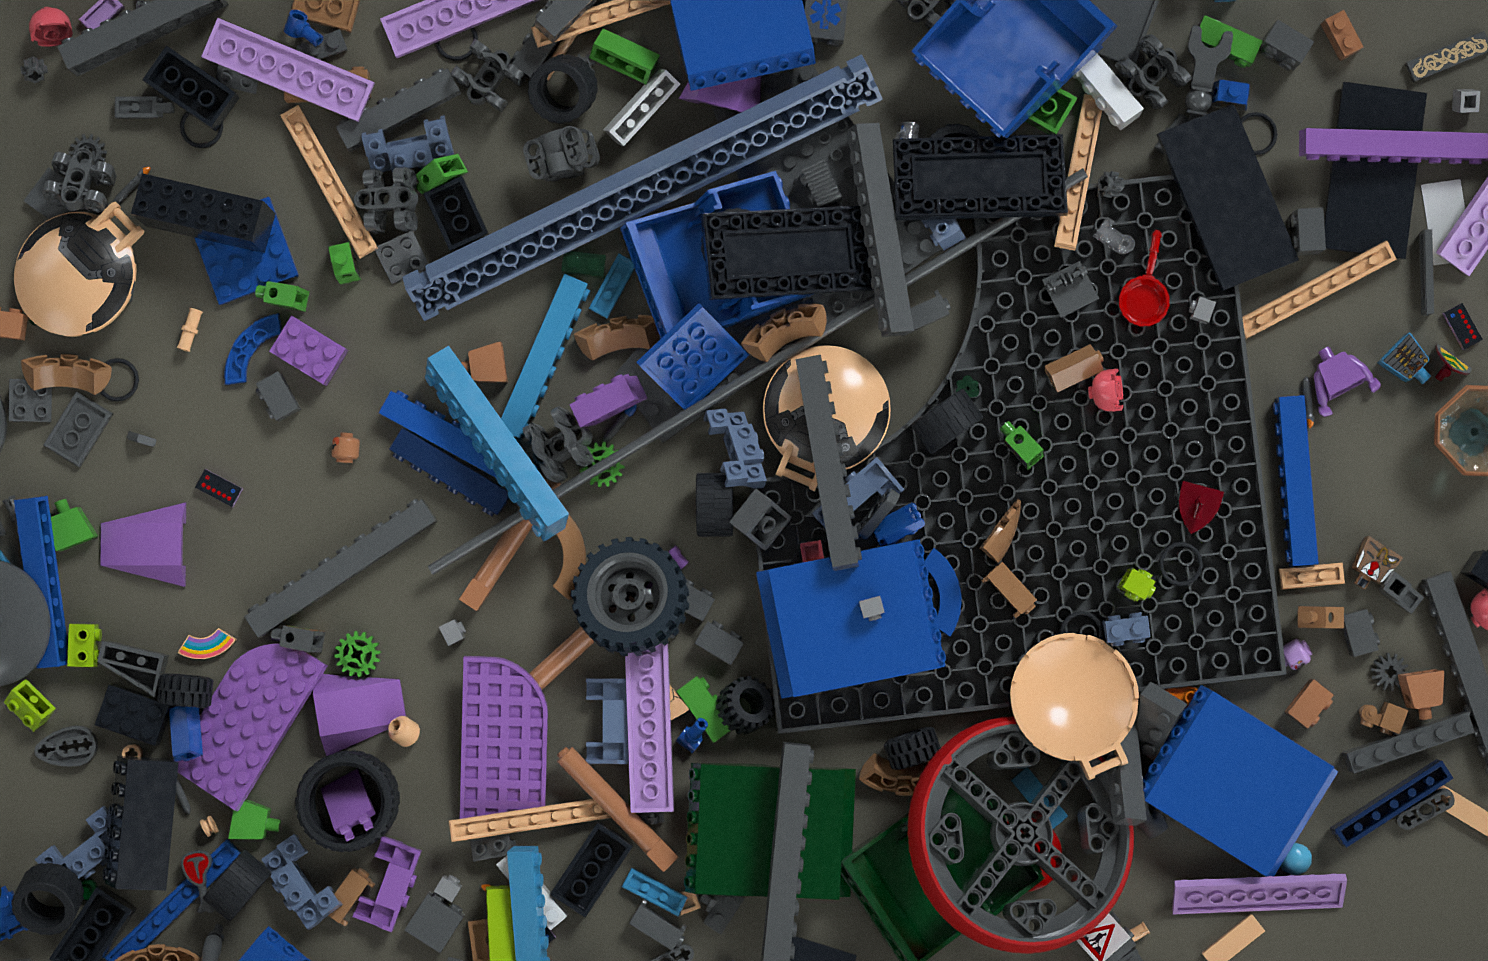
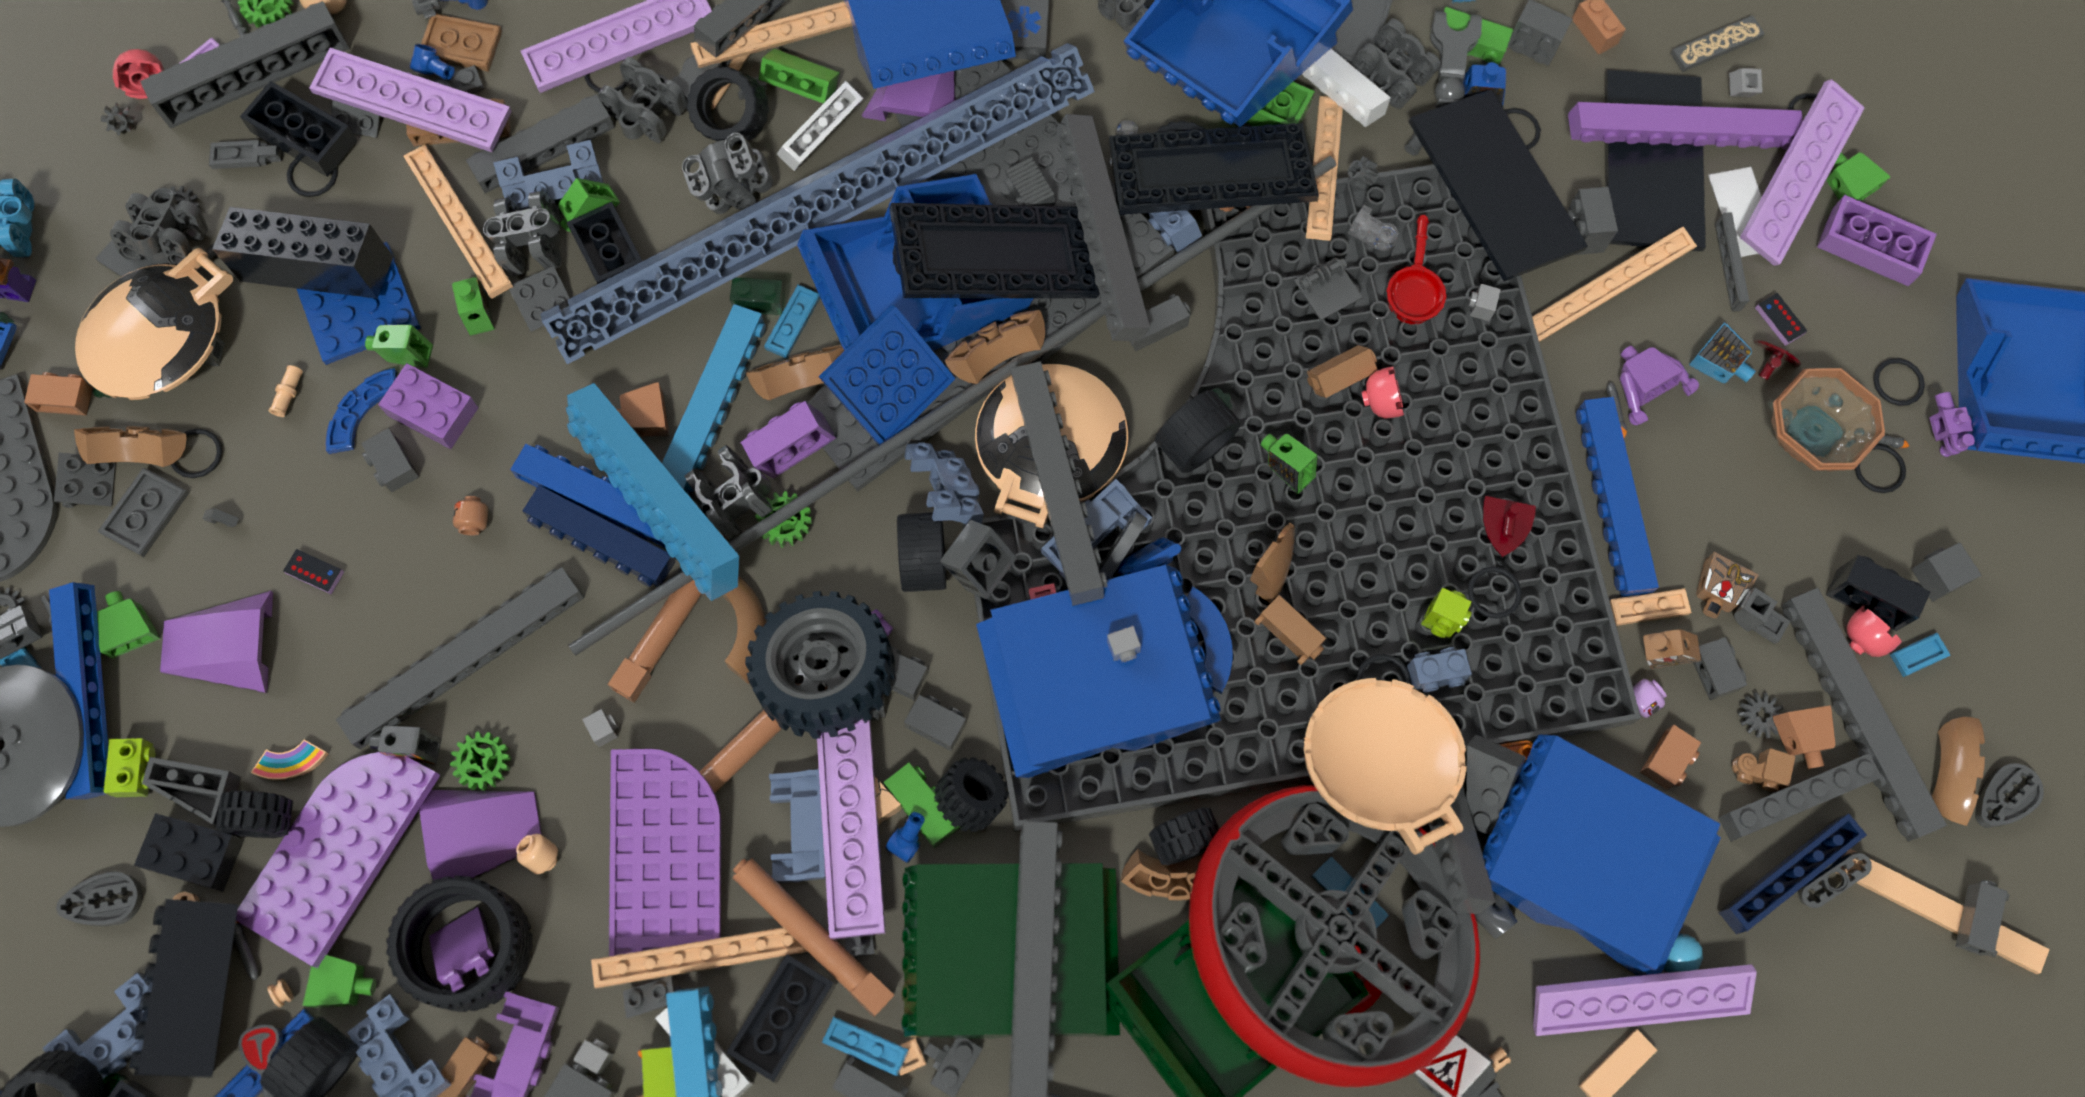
camera: 10 degrees left, 15 degrees down
(29, 705) = (52, 847): lime brick -> none
(185, 733) = (252, 869): blue brick -> none
(618, 424) = (804, 472): dark grey piece -> none

